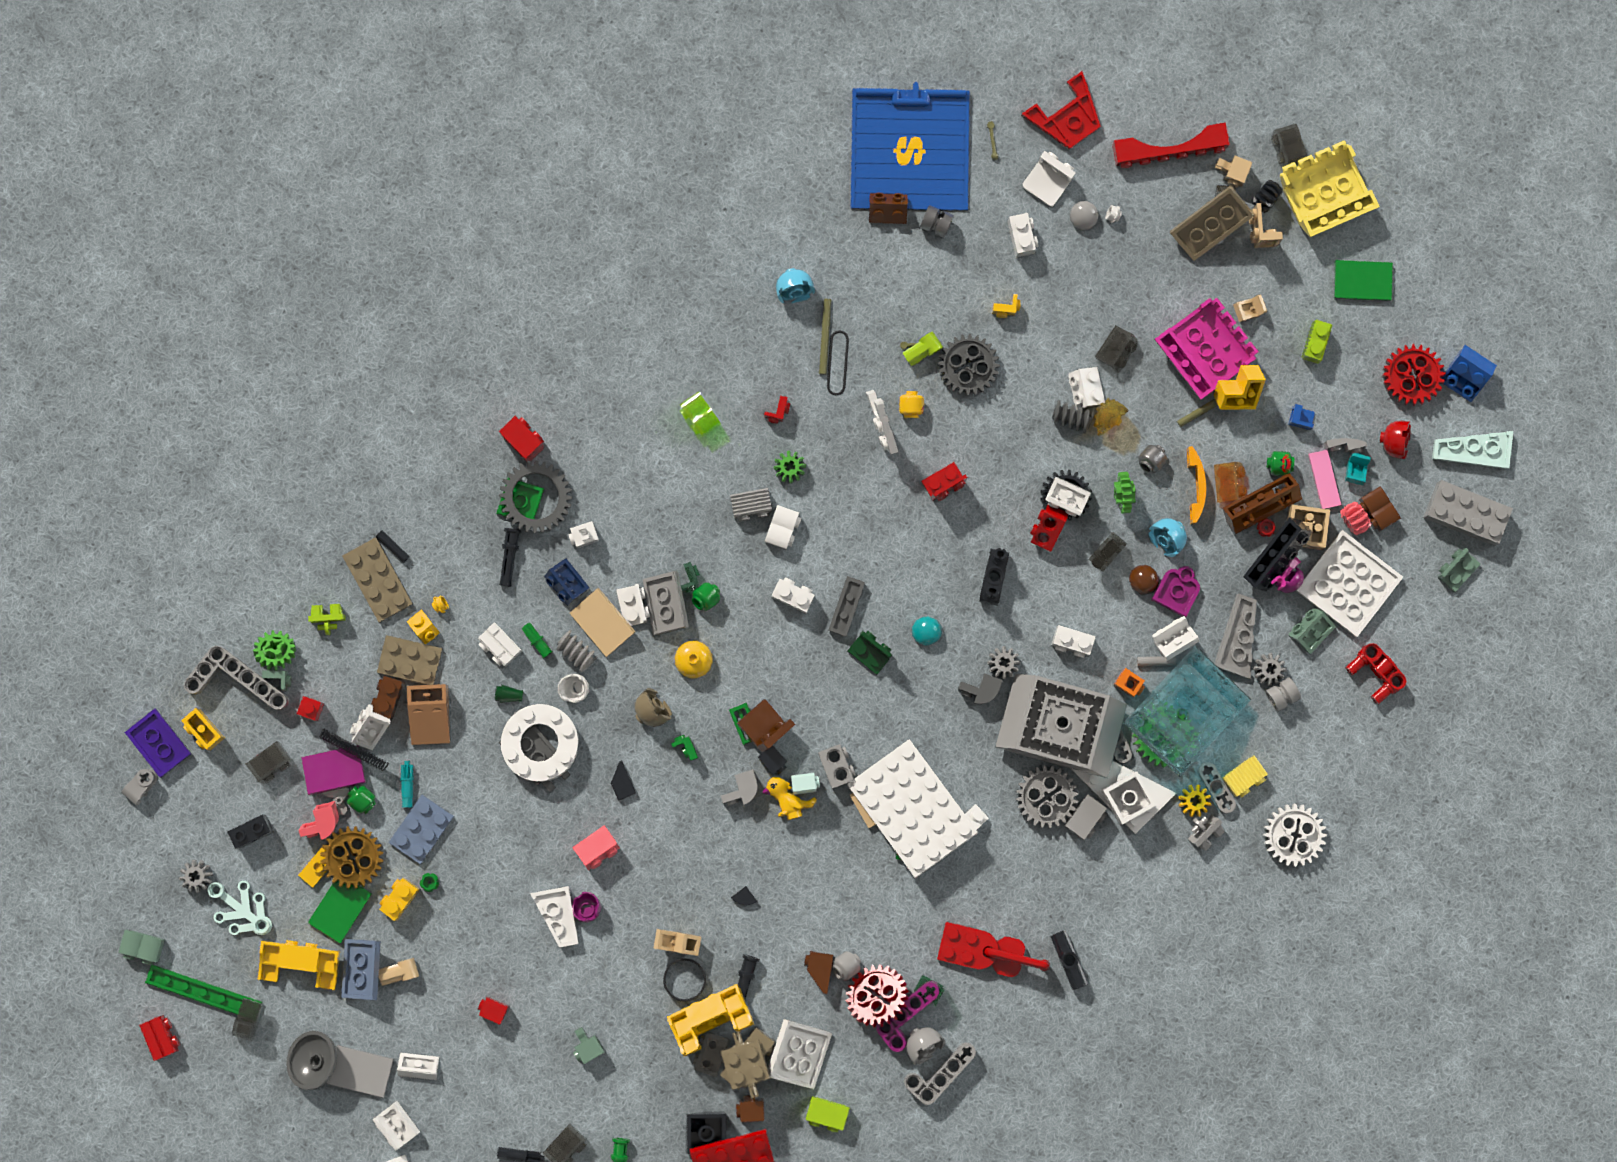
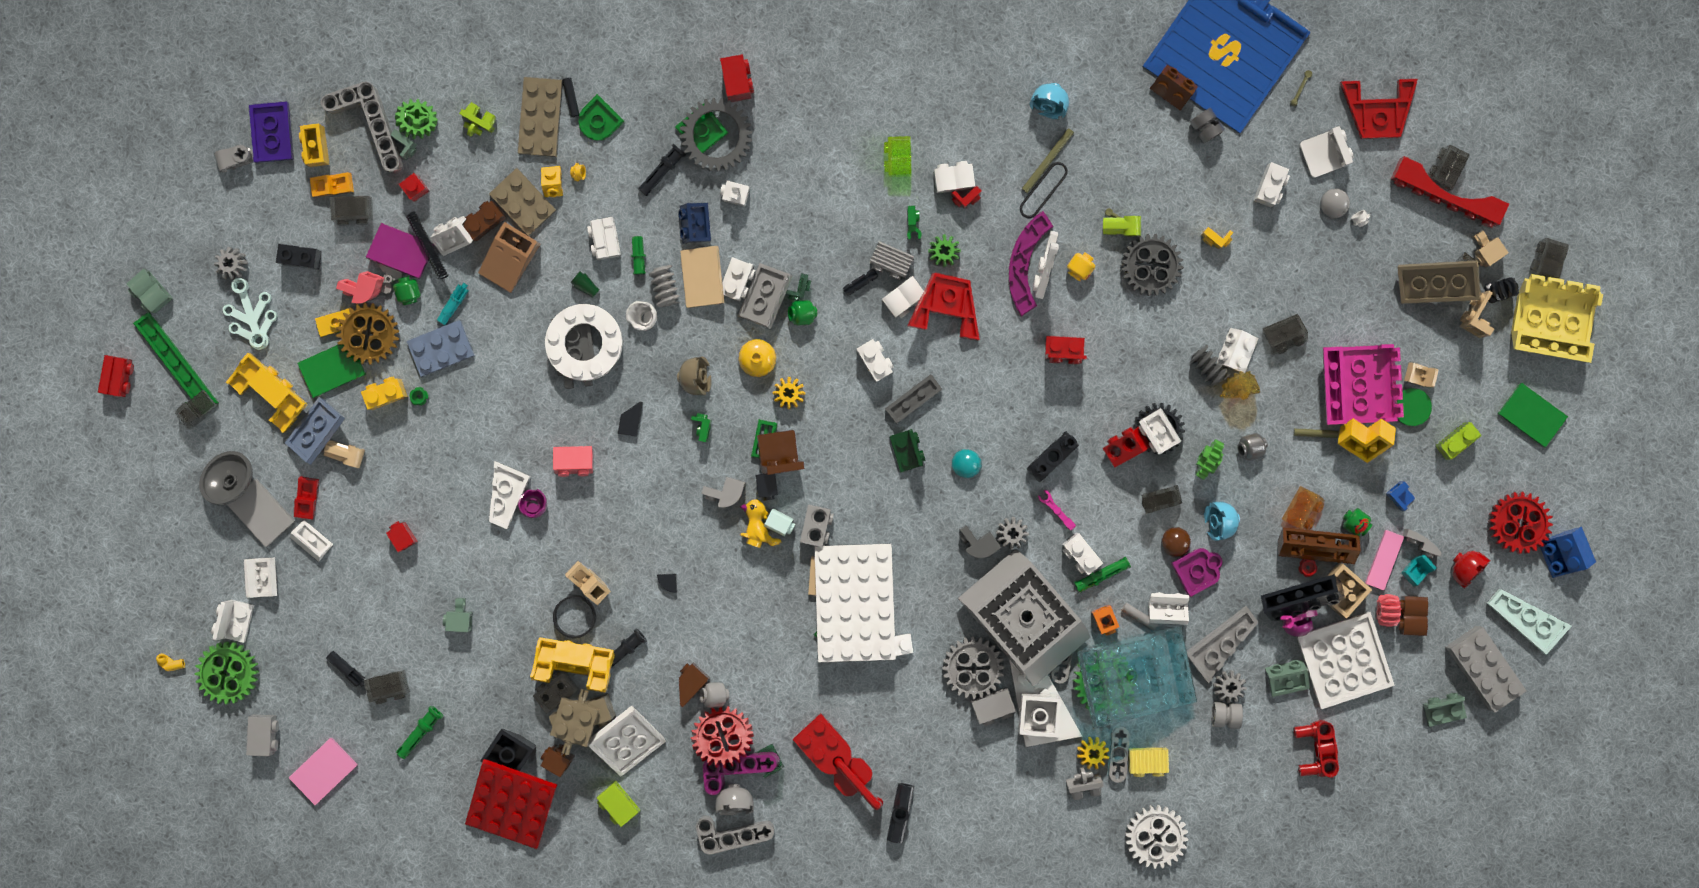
camera: 40 degrees right, 5 degrees up
(238, 753) = (331, 184): none -> light orange slope
(390, 1032) = (306, 497): none -> red slope
(428, 549) = (598, 120): none -> green tile
(737, 539) = (860, 282): none -> black axle
(741, 676) = (786, 399): none -> yellow gear
(745, 456) = (913, 217): none -> green plate
(757, 402) = (954, 177): none -> white brick
(819, 502) = (948, 297): none -> red wing
(858, 435) = (1020, 260): none -> magenta tile
(1028, 619) = (1049, 502): none -> dark pink piece
(1098, 653) = (1099, 576): none -> green pin
(1156, 125) = (1448, 167): none -> clear smoke brick
(1194, 461) = (1286, 472): light orange slope -> none
(1263, 337) = (1416, 407): none -> green tile

